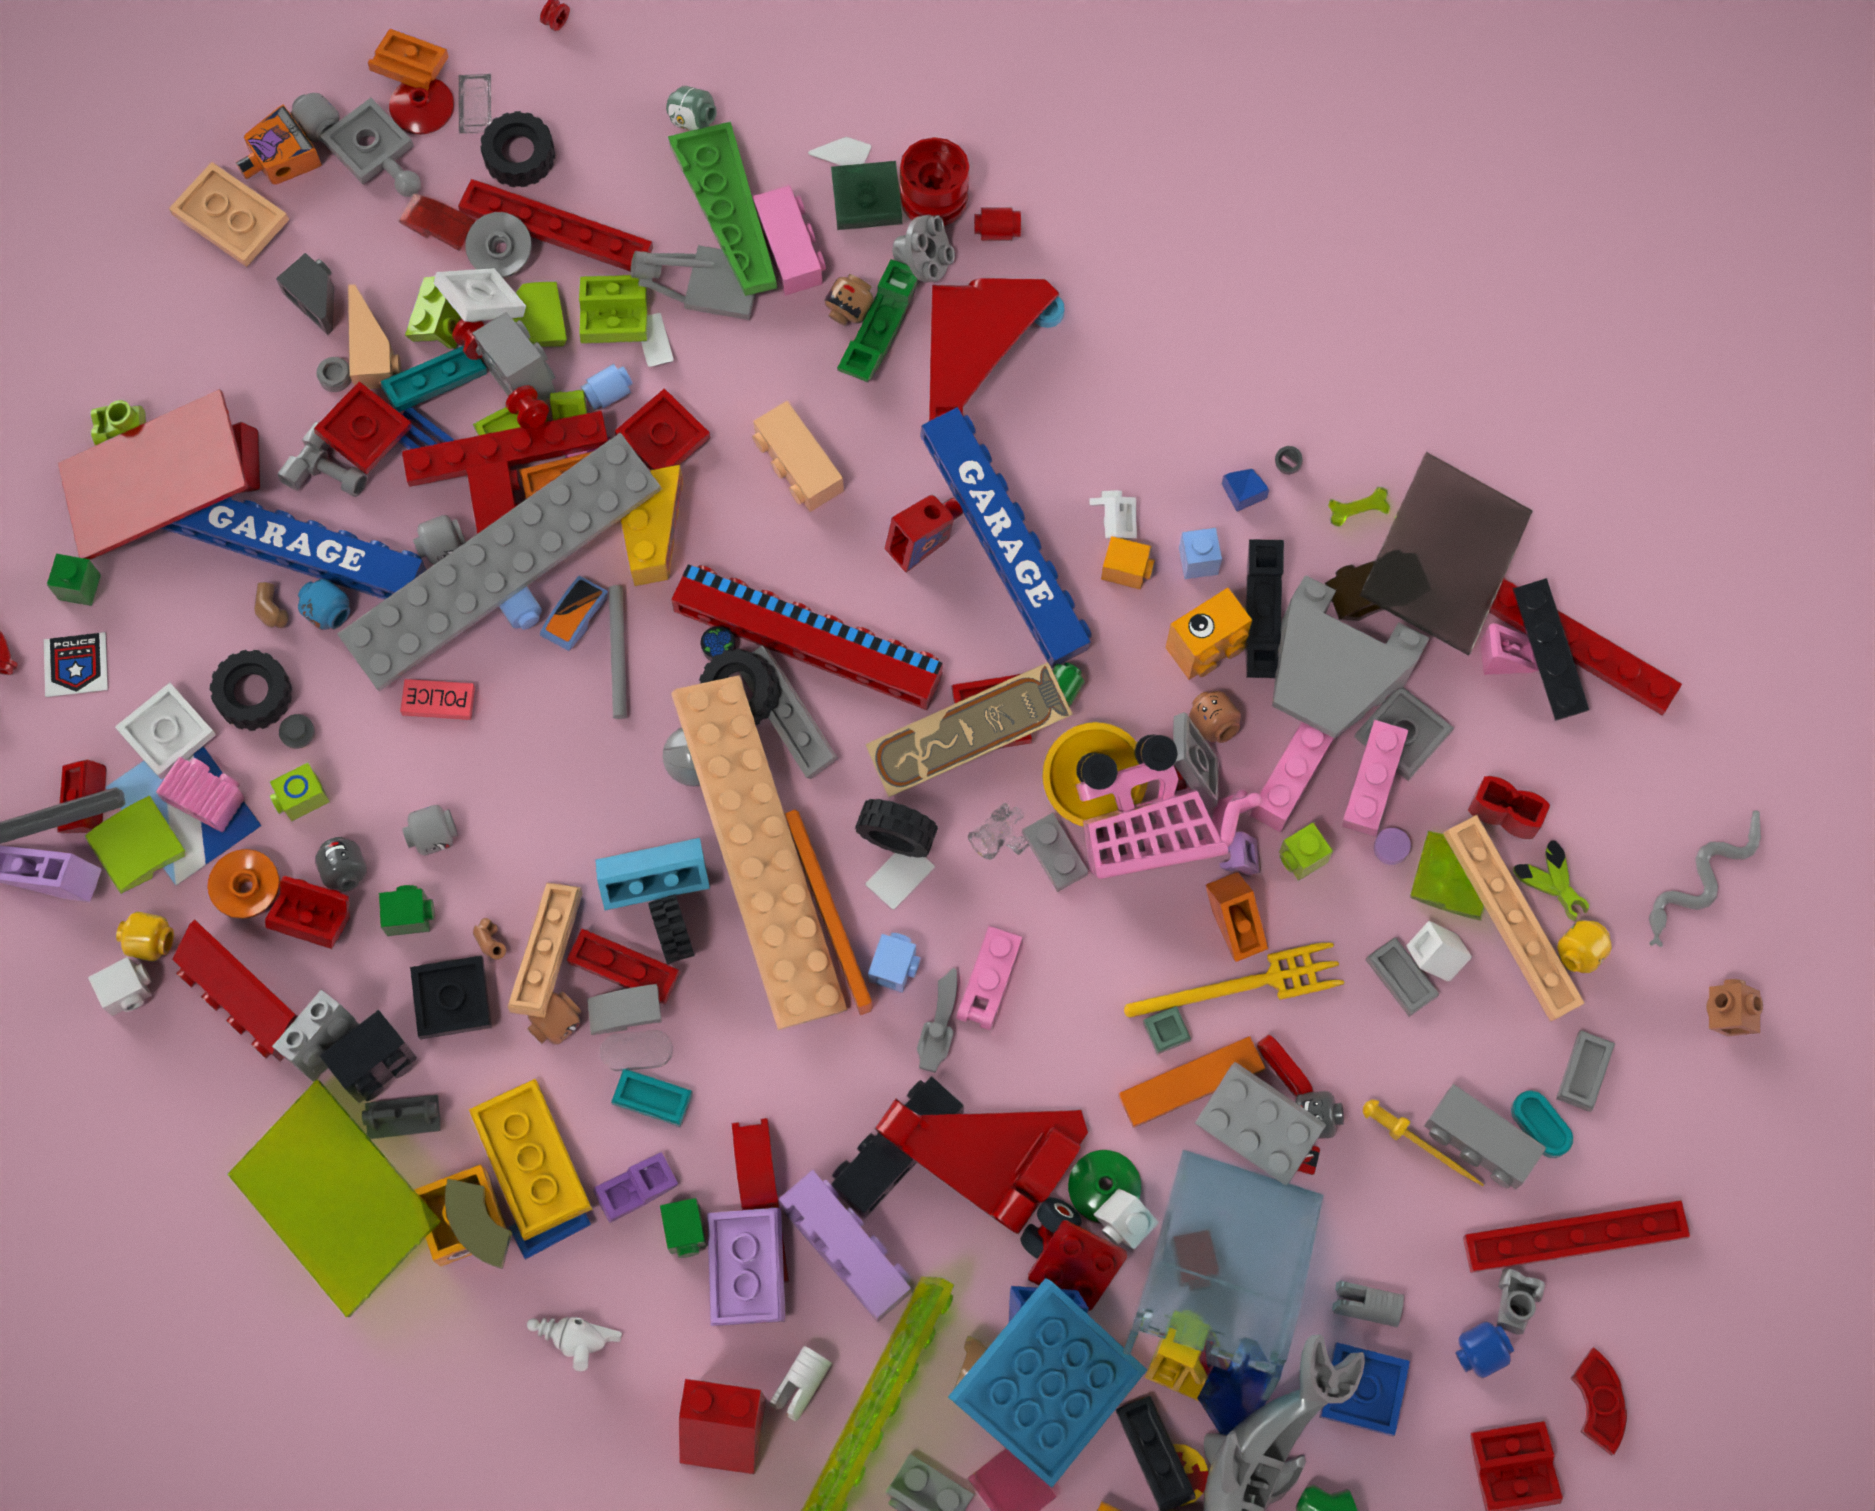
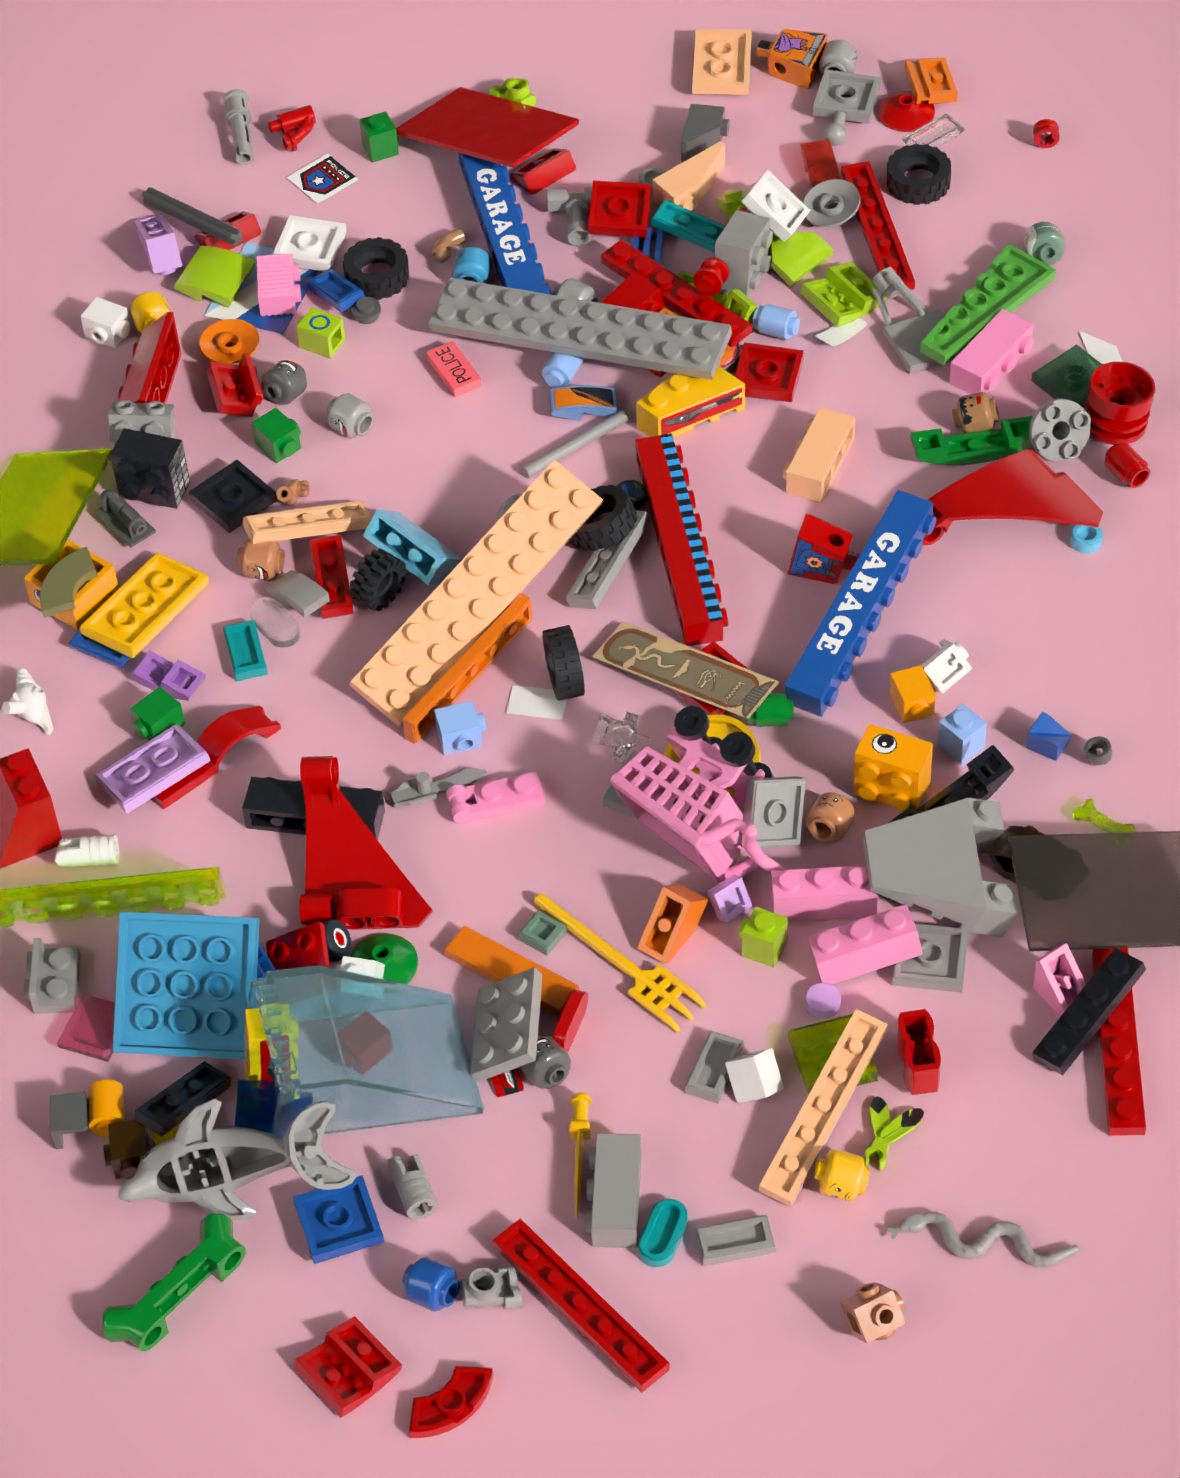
camera: 60 degrees right, 20 degrees down
(250, 744) = (335, 290): none -> blue tile
(845, 1246) = (213, 807): lavender wedge -> none

